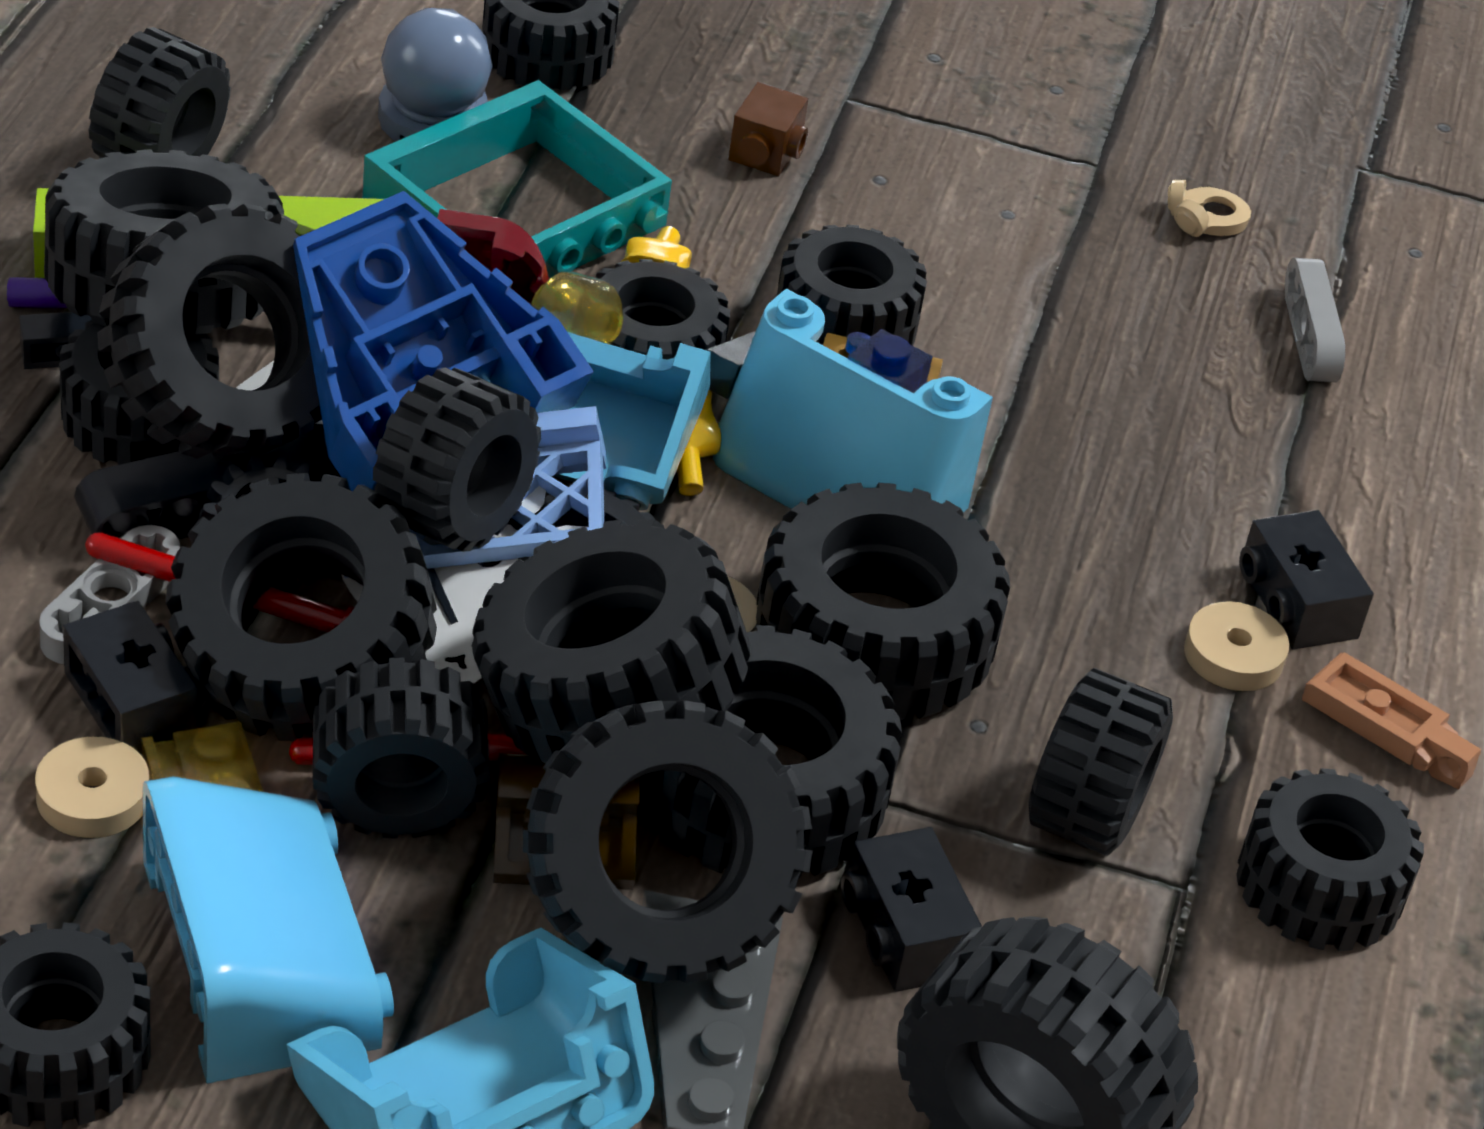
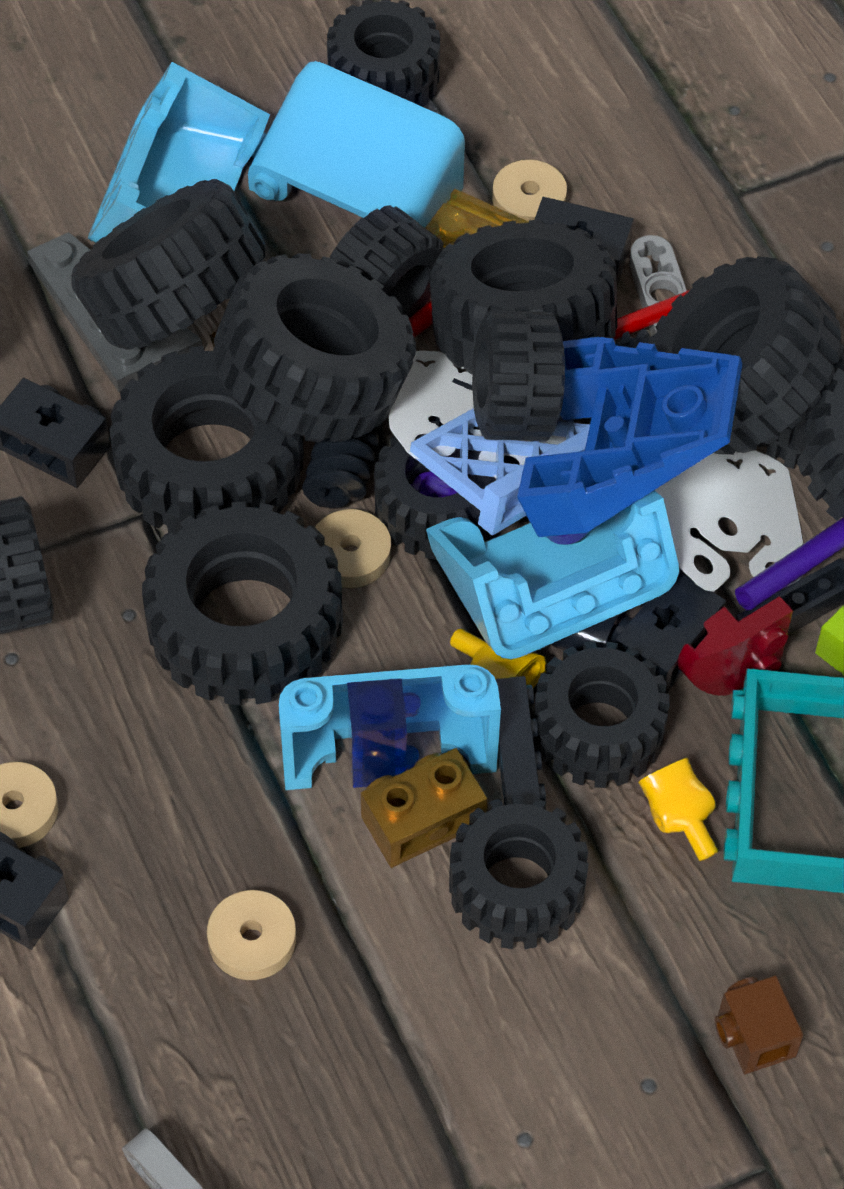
camera: 145 degrees right, 15 degrees up
(582, 305) = (622, 616): clear yellow head -> none
(1104, 431) = (257, 957): none -> tan piece

